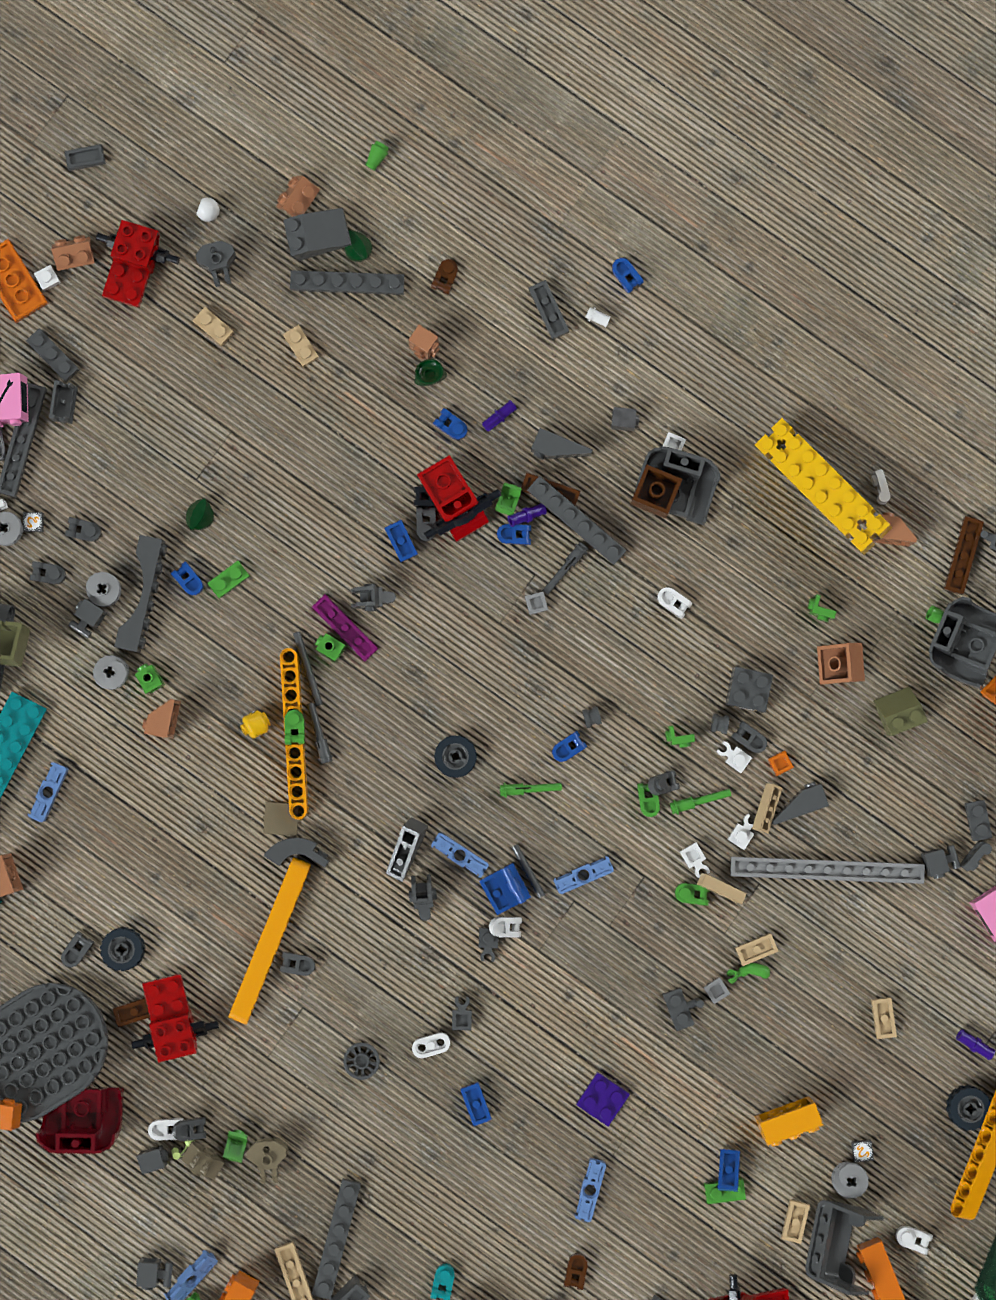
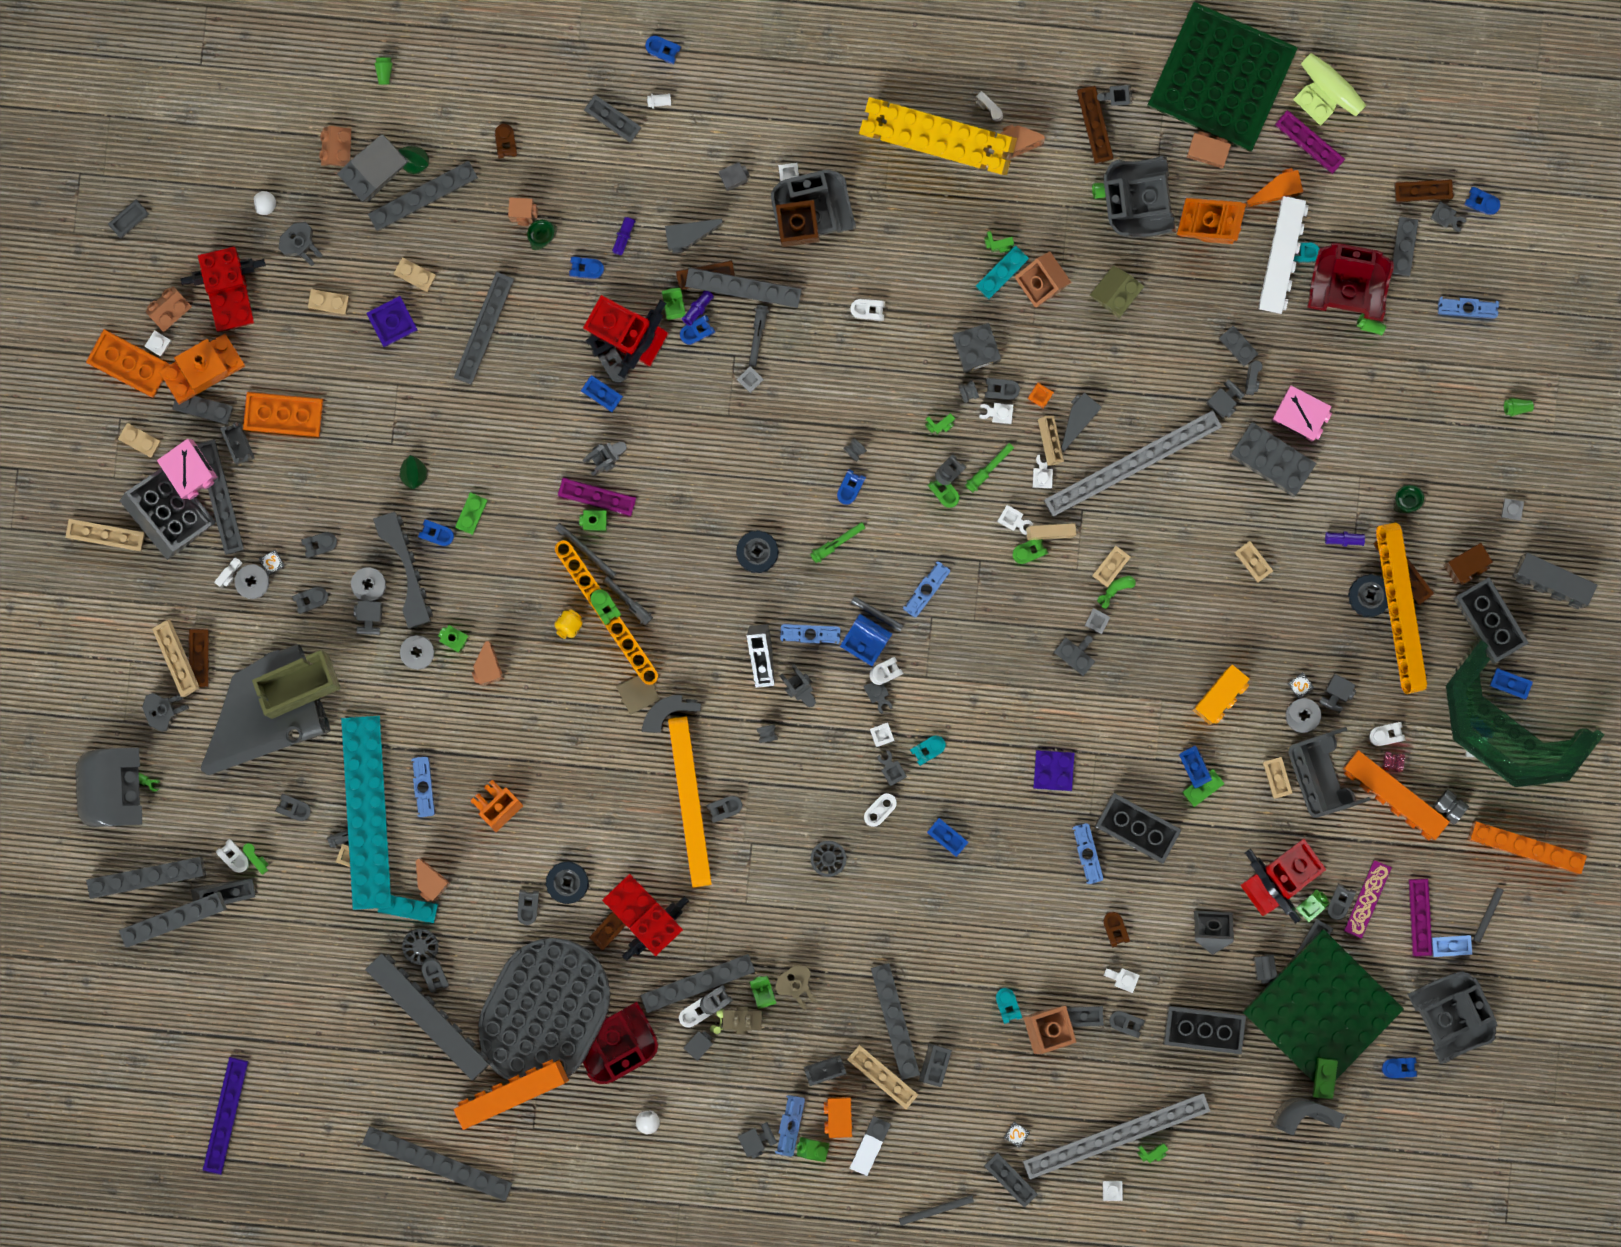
camera: 25 degrees left, 0 degrees up
(68, 1201) = (647, 1122): none -> white piece
(70, 319) = (201, 367): none -> orange brick
(103, 851) = (500, 809): none -> orange brick
(117, 400) = (283, 414): none -> orange tile
(184, 1103) = (697, 983): none -> dark grey plate
(249, 1247) = (825, 1070): none -> dark grey hinge
(257, 374) = (391, 321): none -> dark purple plate
(332, 426) = (484, 328): none -> dark grey plate
(371, 920) = (767, 734): none -> dark grey wheel
(471, 980) = (882, 734): none -> white plate
(511, 1016) = (934, 745): none -> teal plate
(647, 1195) = (1138, 828): none -> dark grey brick
(808, 637) = (1002, 272): none -> teal plate
(894, 1175) = (1339, 690): none -> dark grey brick
(906, 1267) = (1389, 760): none -> clear pink wheel
(952, 938) = (1273, 459): none -> dark grey brick

